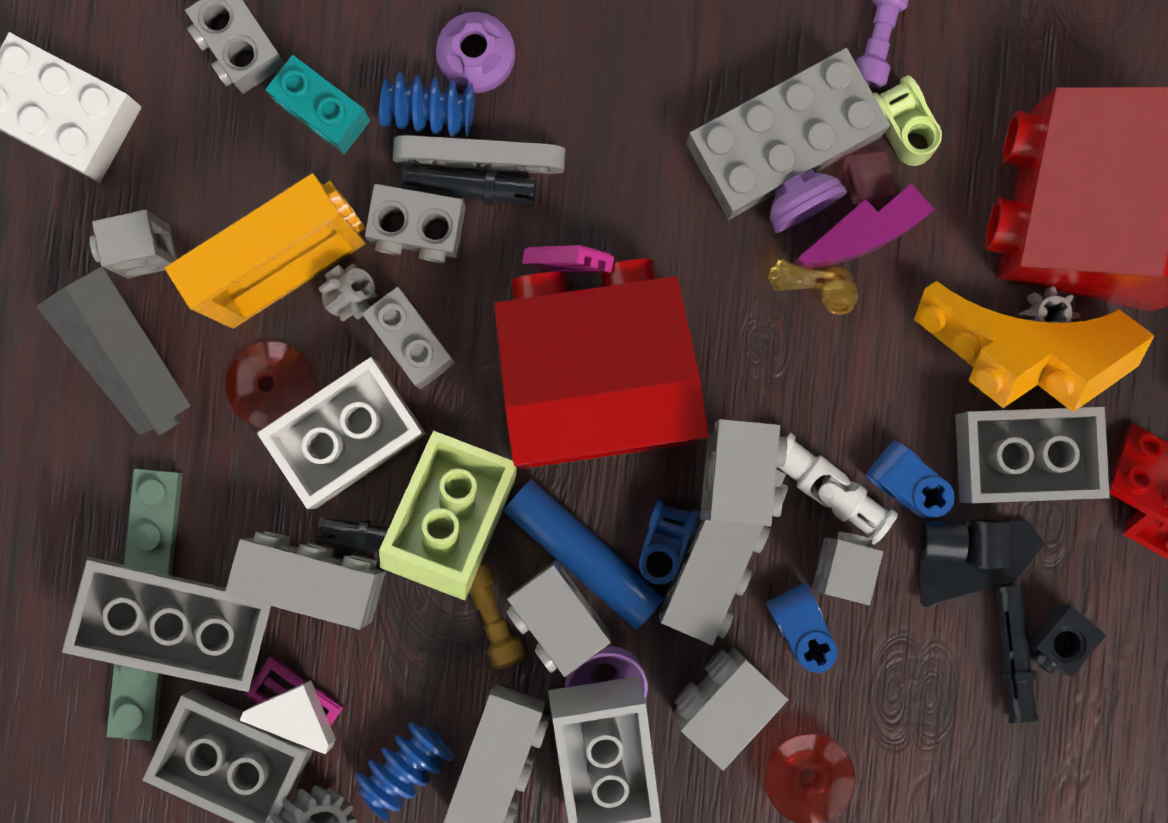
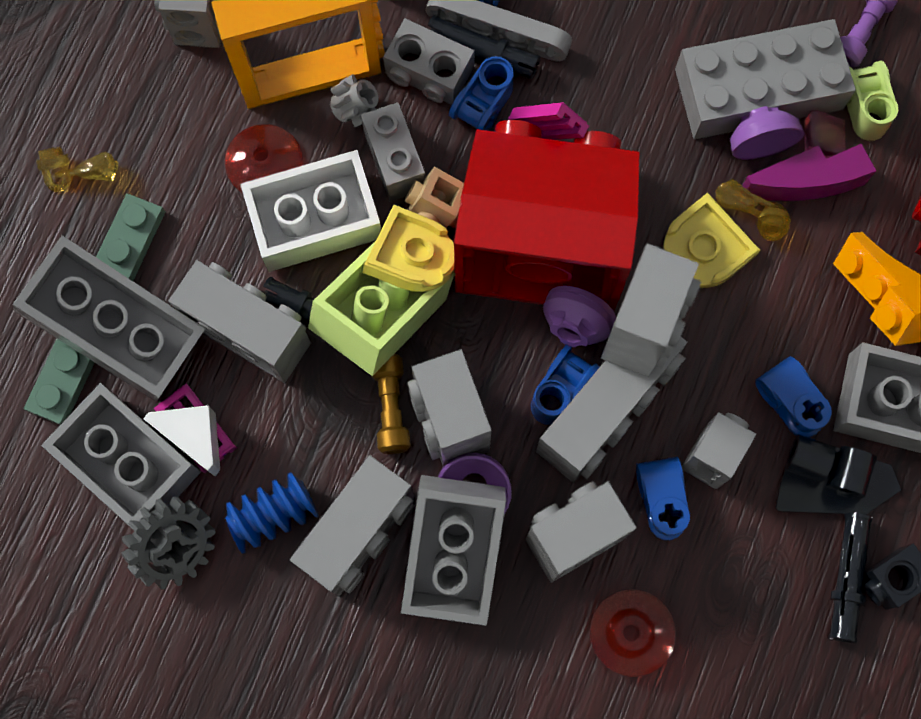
camera: 15 degrees right, 10 degrees down
(42, 454) = (98, 167): none -> clear yellow piece
(115, 351) = (144, 88): dark grey slope -> none
(465, 456) = (411, 252): none -> light yellow tile
(471, 385) = (436, 197): none -> tan brick
(487, 246) = (480, 101): none -> blue piece
(583, 554) = (496, 388): blue brick -> none
(661, 470) = (578, 316): none -> medium lavender piece
(774, 338) = (712, 240): none -> light yellow tile
(846, 498) = (725, 386): white piece -> none

